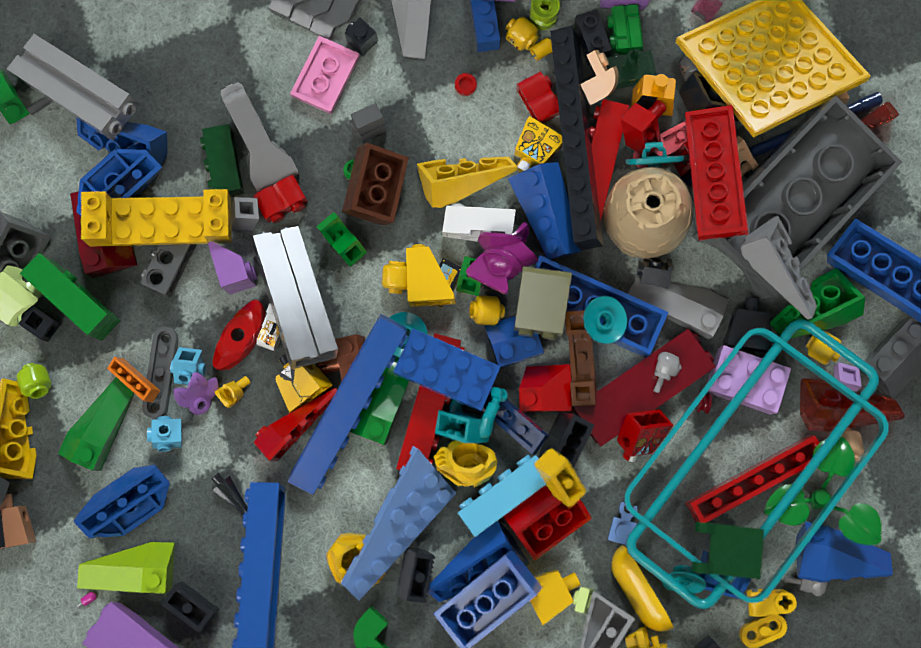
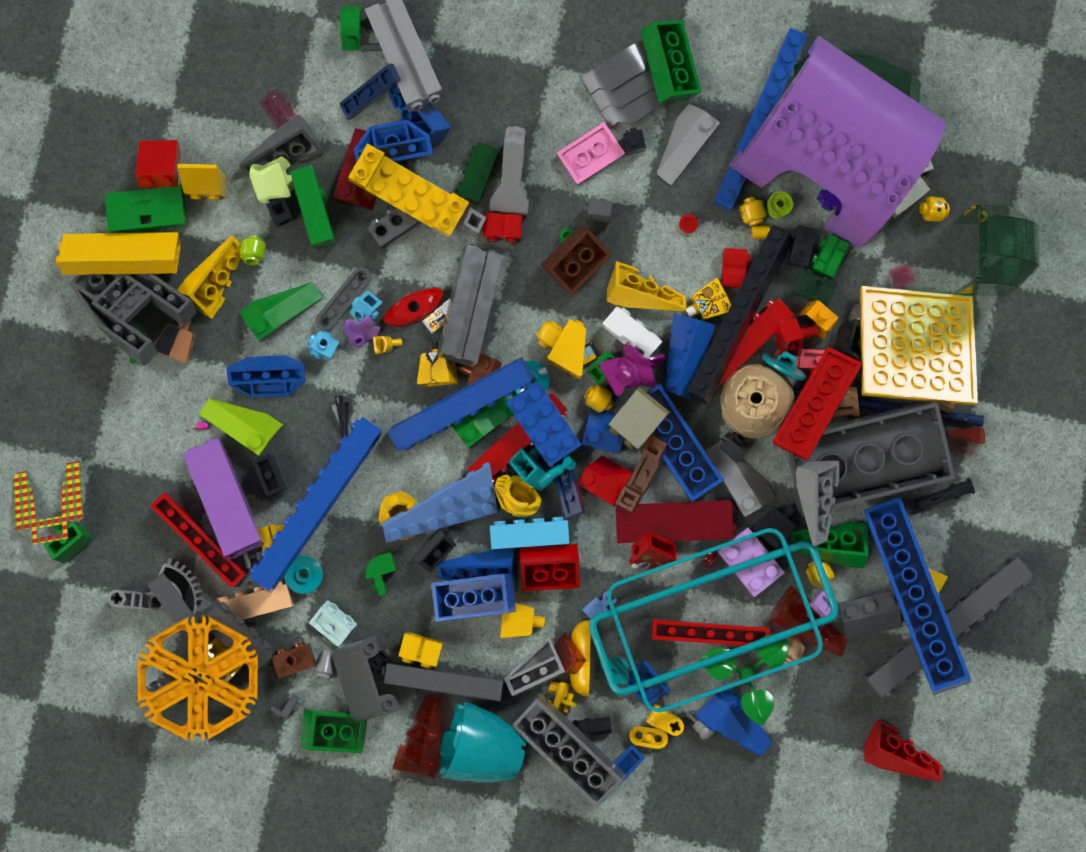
camera: 30 degrees right, 5 degrees up
(59, 143) = (370, 91): none -> dark blue plate
(133, 379) = (322, 293): orange piece -> none
(232, 270) = (438, 260): medium lavender slope -> none
(283, 433) = (402, 396): red wedge -> none
(341, 239) = (527, 284): green brick -> none
(560, 477) = (573, 545): yellow brick -> none
(568, 437) = (595, 523): black brick -> none
(582, 599) = (538, 638): yellowish green plate -> none
(605, 80) = (787, 285): light nougat brick -> none
(613, 320) = (682, 461): teal dish -> none
(626, 596) = (569, 654): none -> clear red slope
(667, 366) = (698, 517): light grey piece -> none
(732, 551) = (658, 667): dark green flag -> none
(898, 183) = (946, 494): none -> black pin

